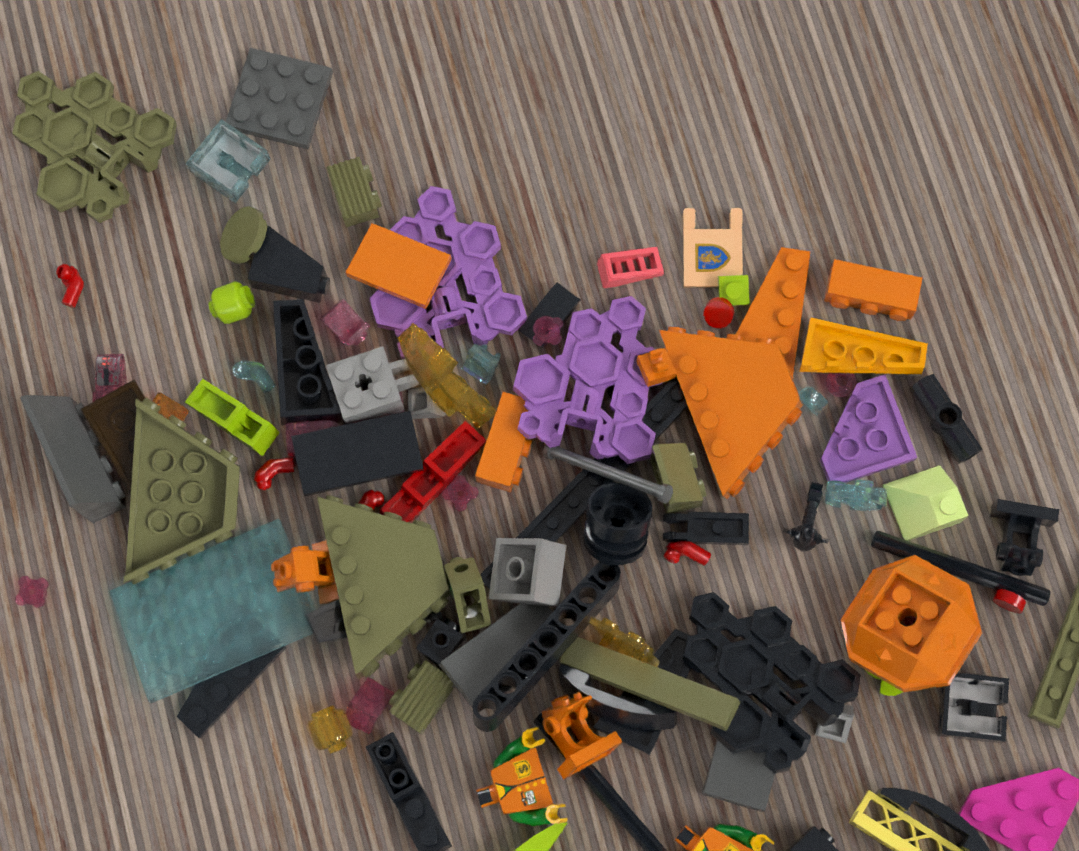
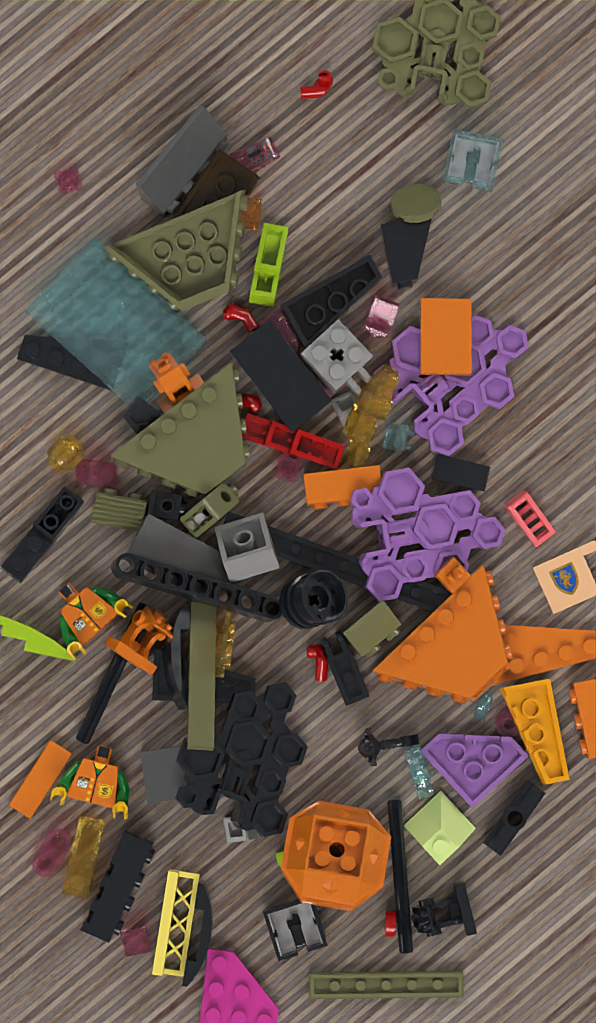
camera: 65 degrees right, 10 degrees up
(231, 302) = (358, 220): lime head -> none
(254, 371) = (312, 263): clear light blue arm -> none
(279, 98) = (545, 173): dark grey plate -> none
(353, 191) = (492, 272): olive brick -> none
(544, 324) = (449, 473): clear pink plate -> none
(662, 492) = (348, 623): dark grey bar -> none
(718, 312) = (521, 604): red tile -> none
(734, 289) = (546, 608): lime plate -> none

